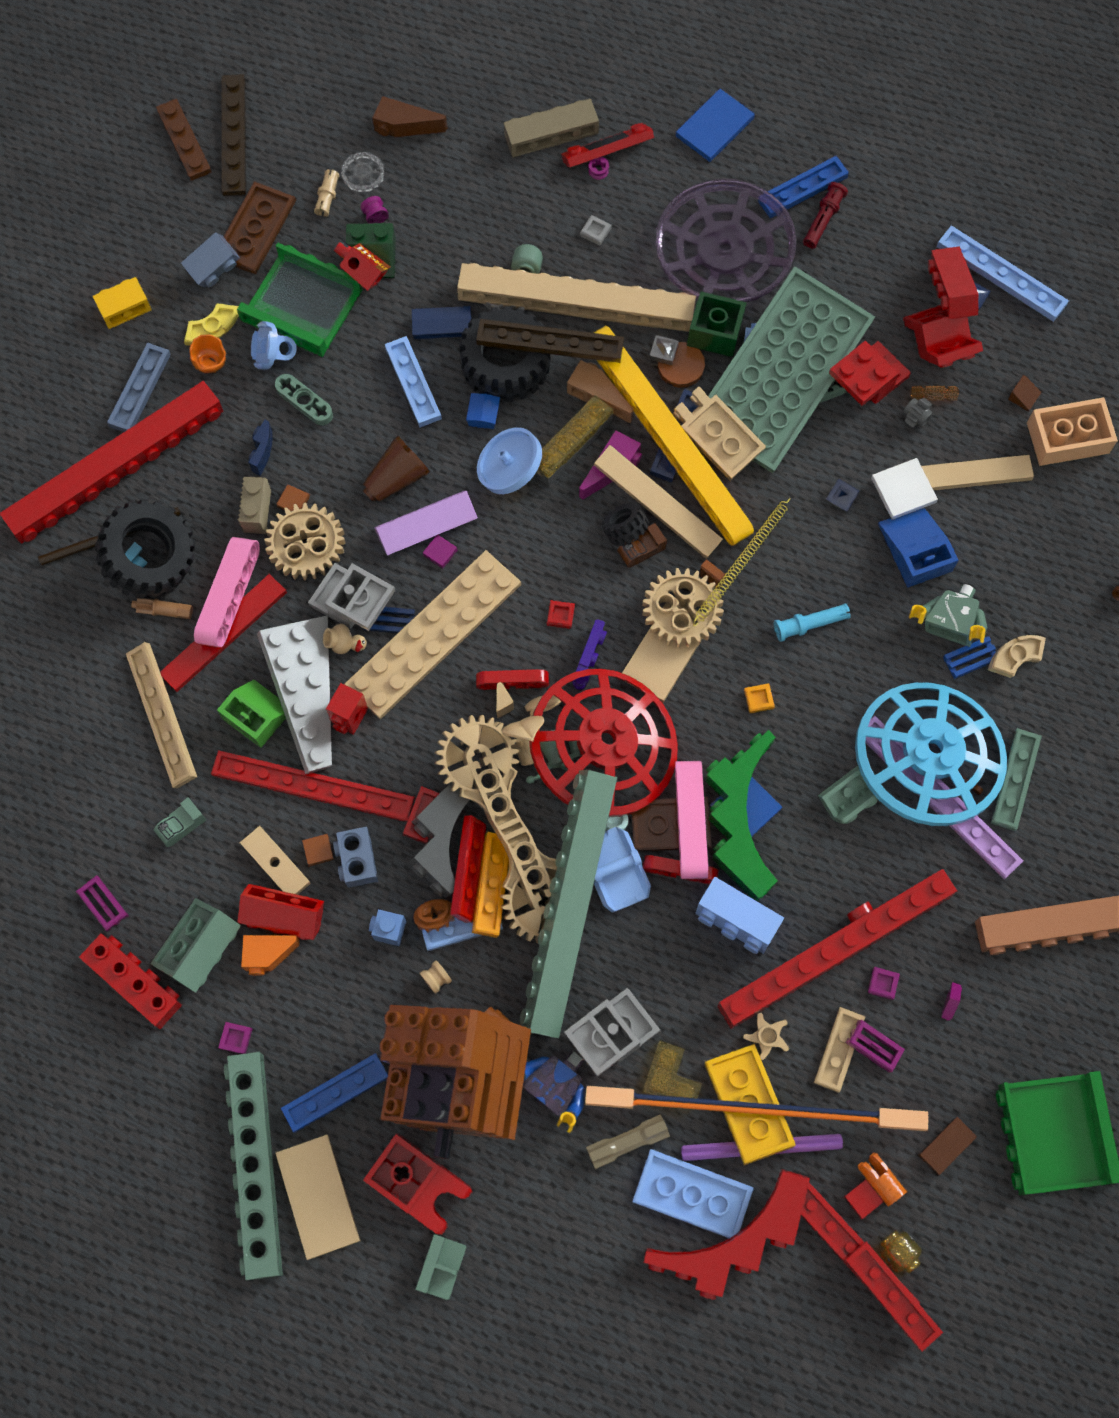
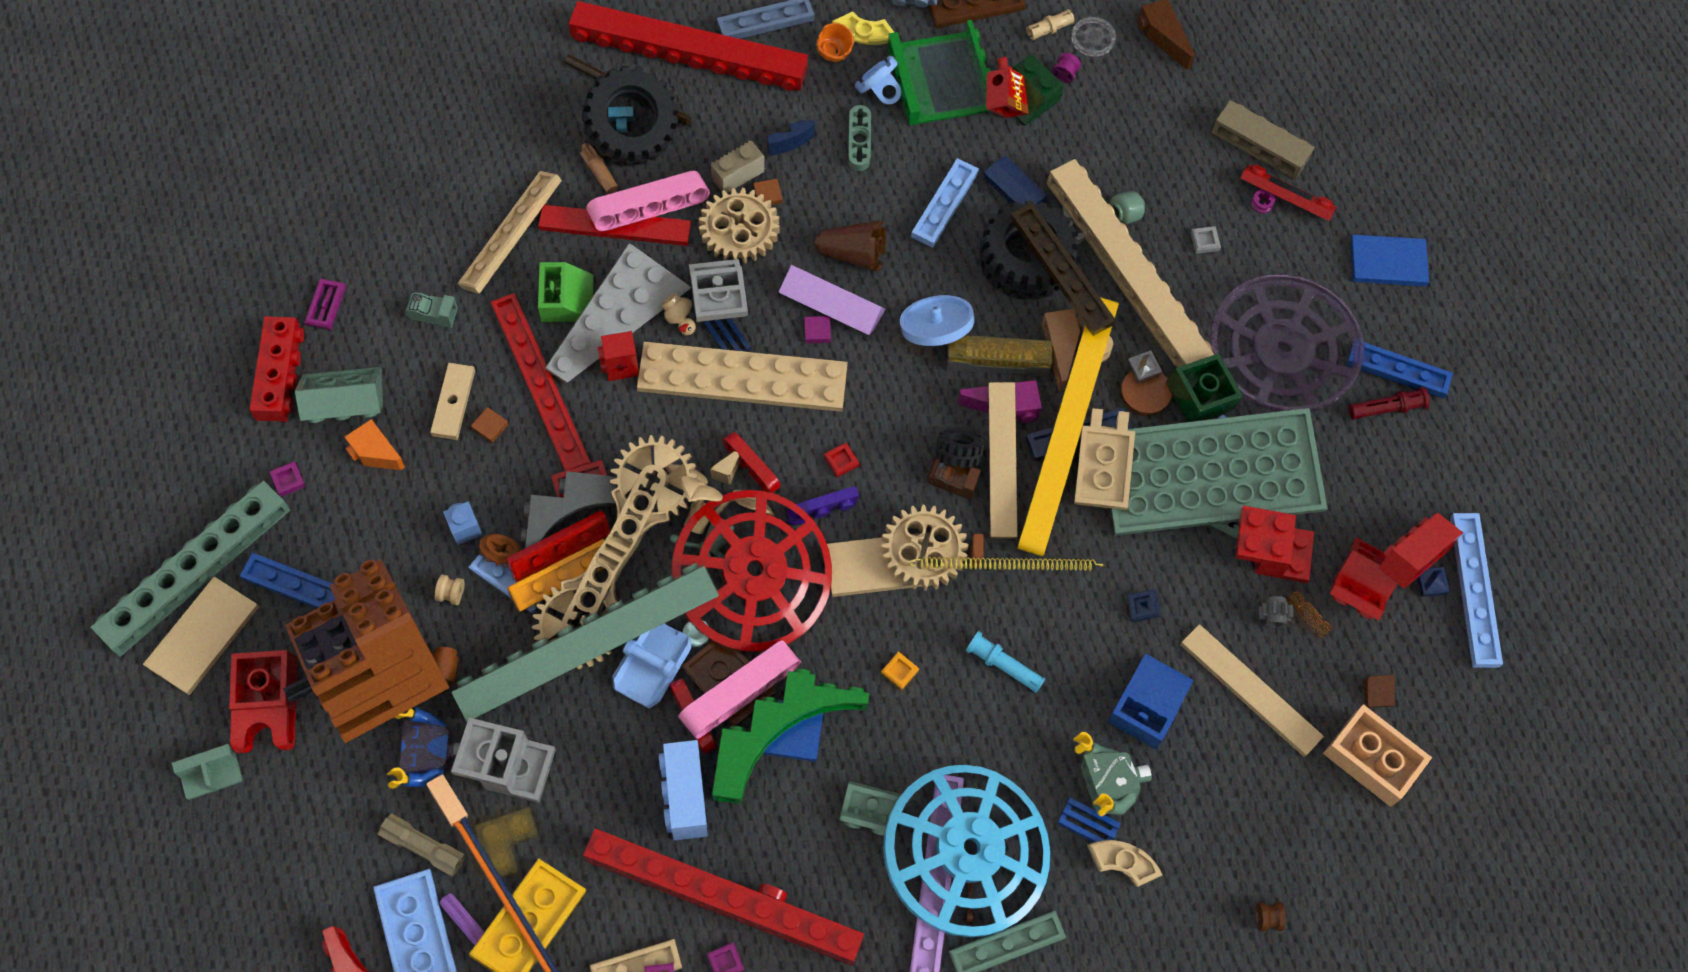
camera: 45 degrees right, 5 degrees down
(280, 912) = (413, 433): red brick -> none
(361, 856) = (509, 460): sand blue brick -> none
(482, 410) = (966, 271): blue piece -> none
(767, 1036) = (602, 896): tan animal -> none
(904, 488) = (1194, 651): white tile -> none

